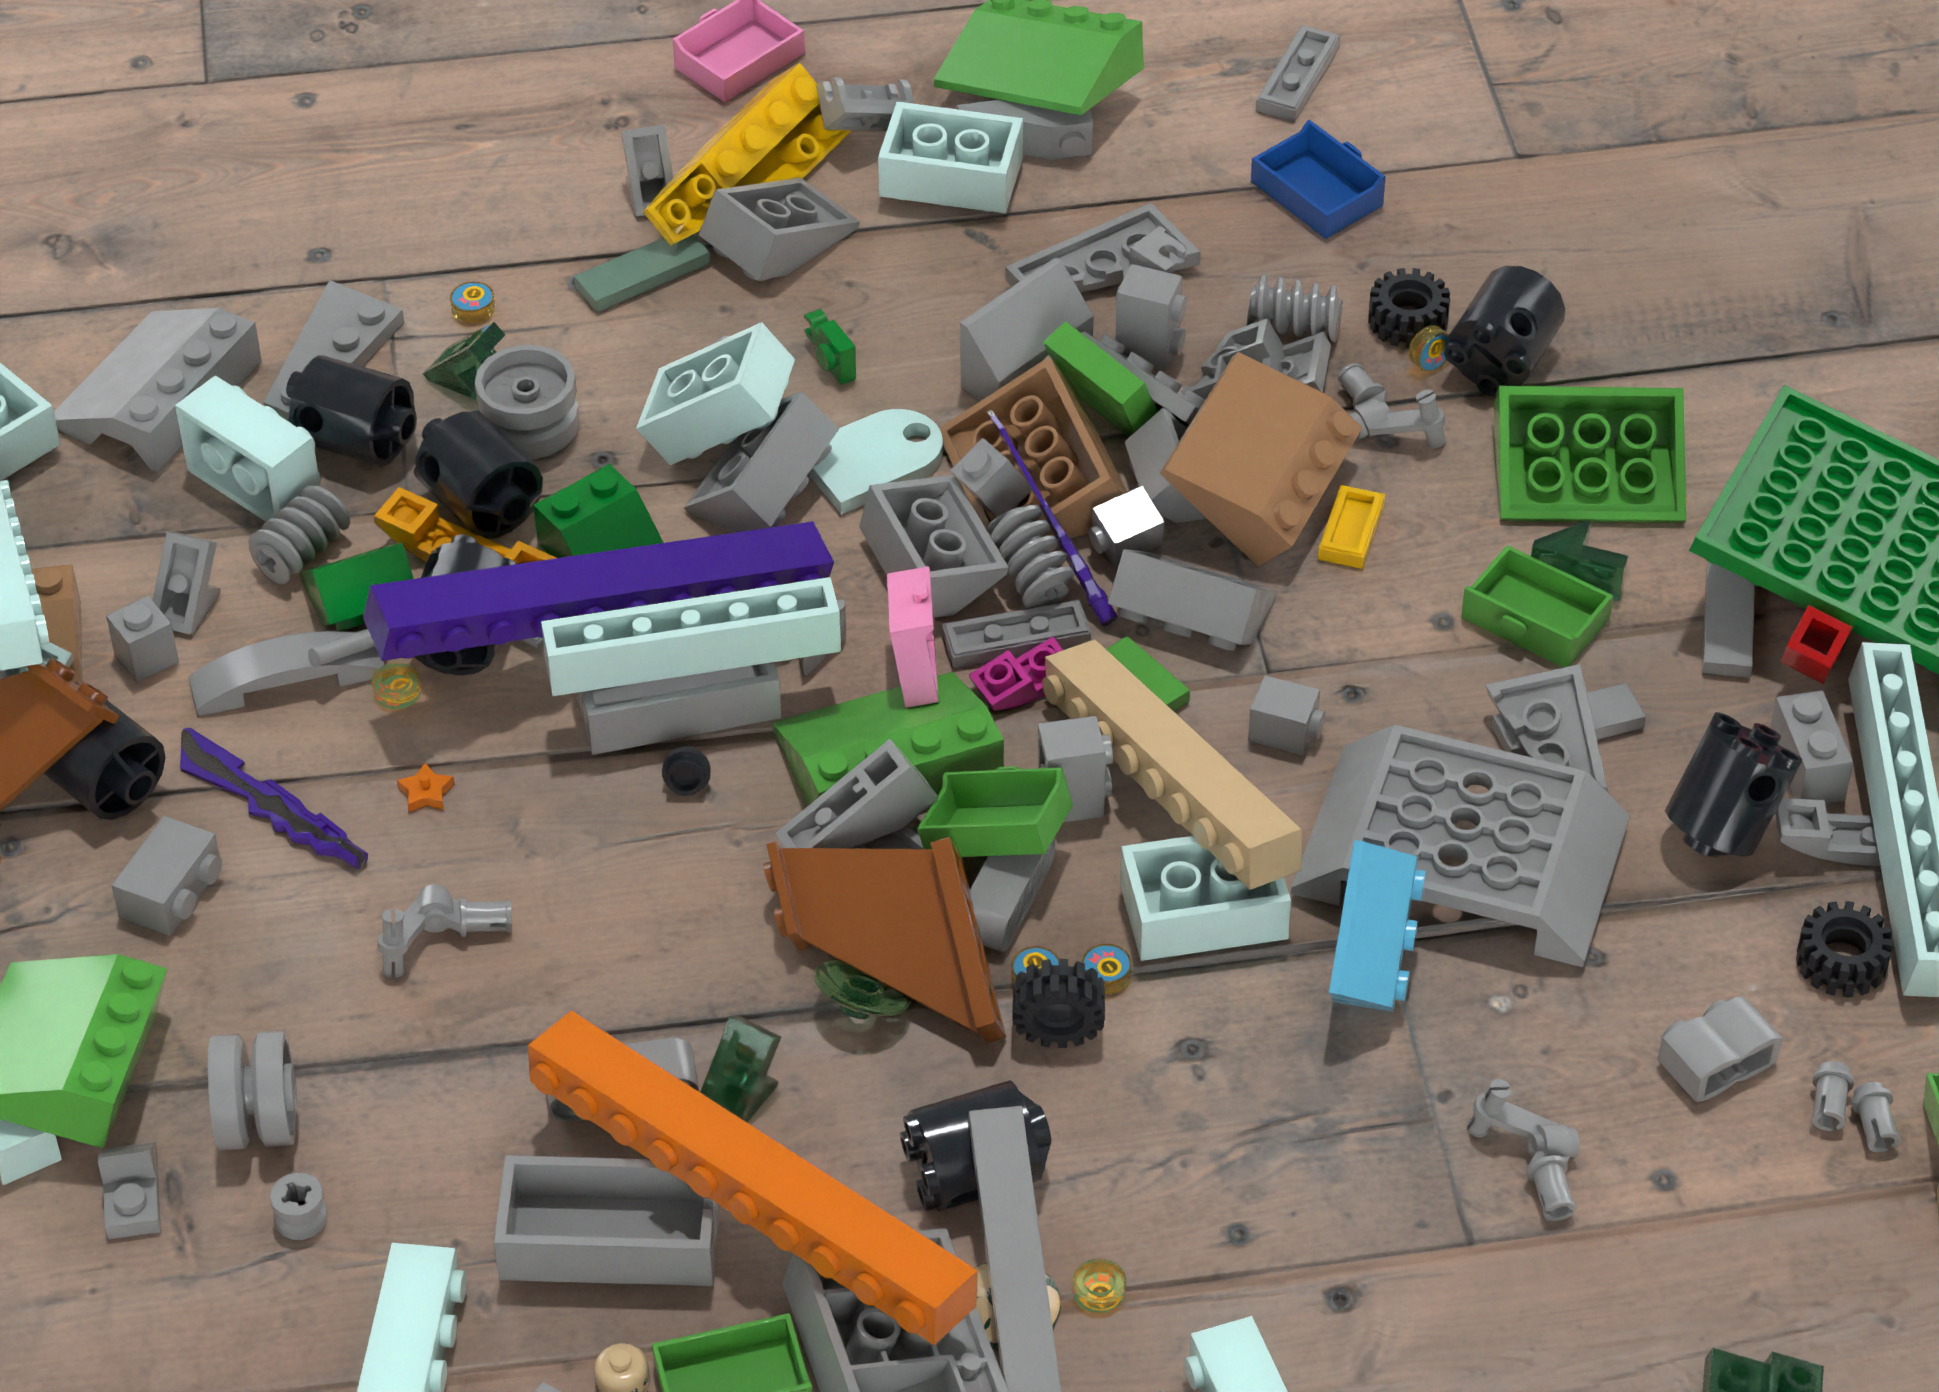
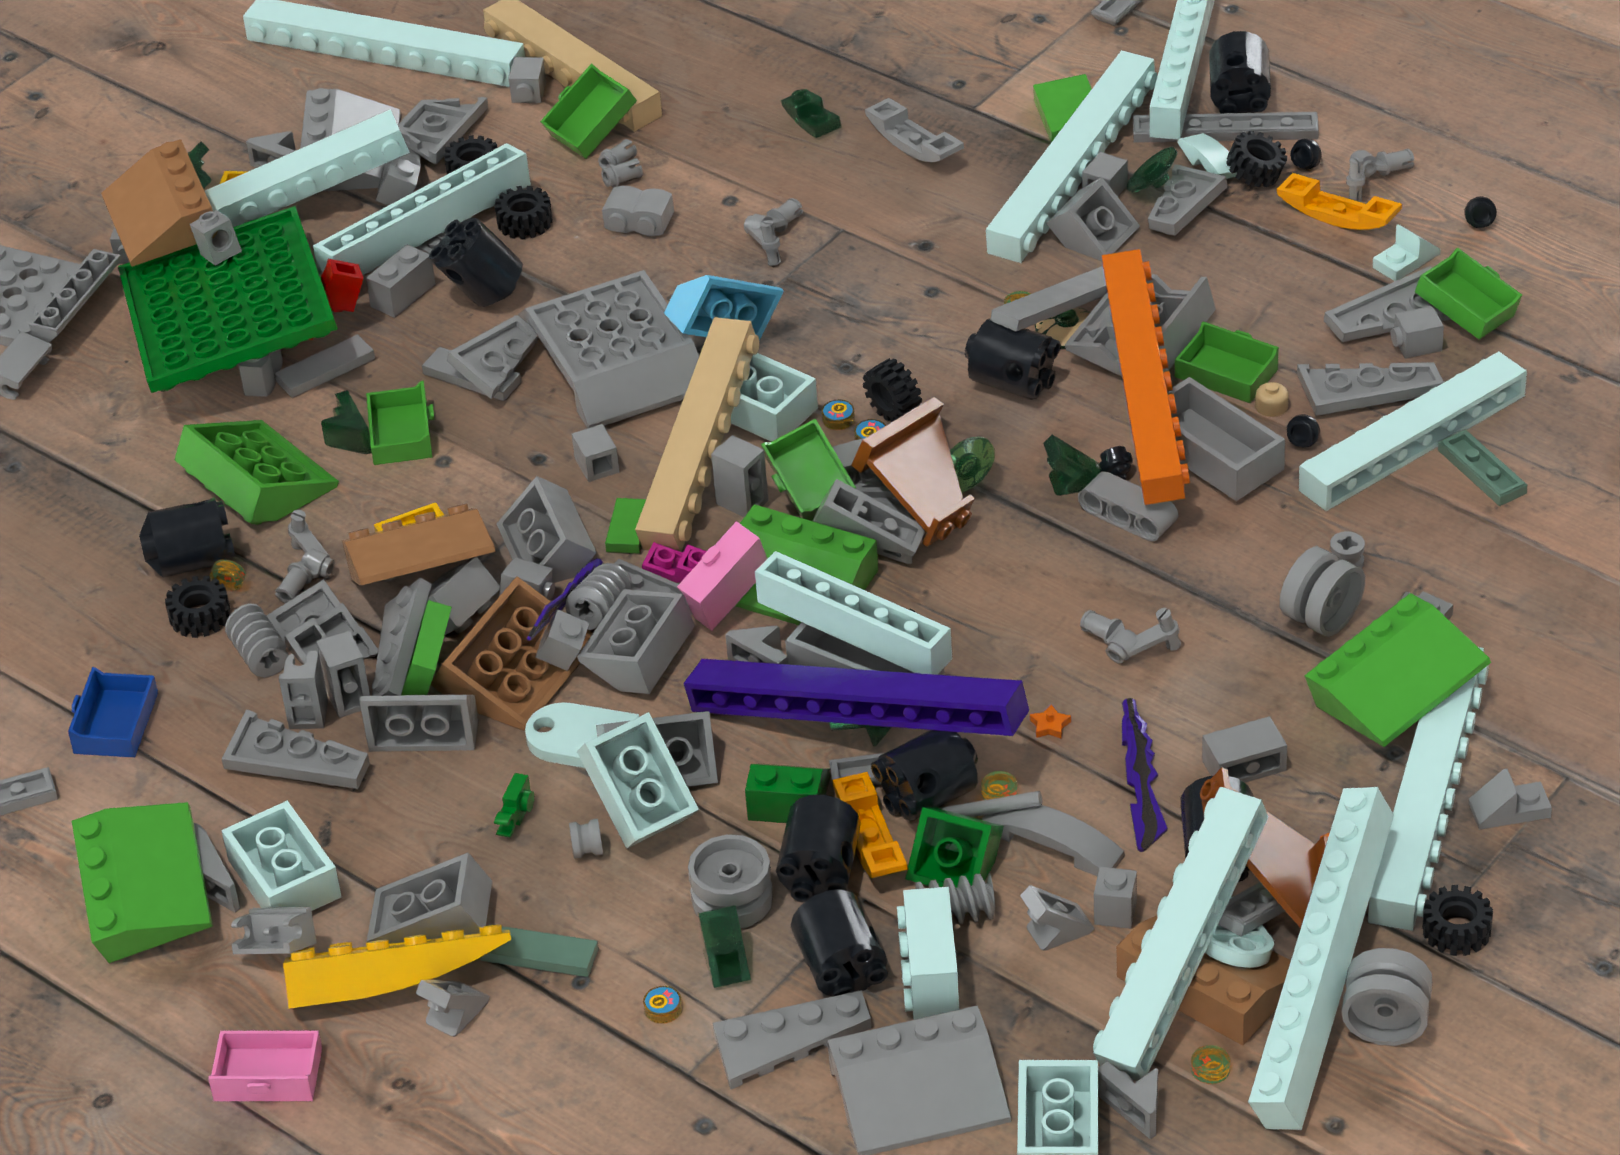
camera: 130 degrees left, 5 degrees down
(527, 1345) = (1303, 430): none -> black plate

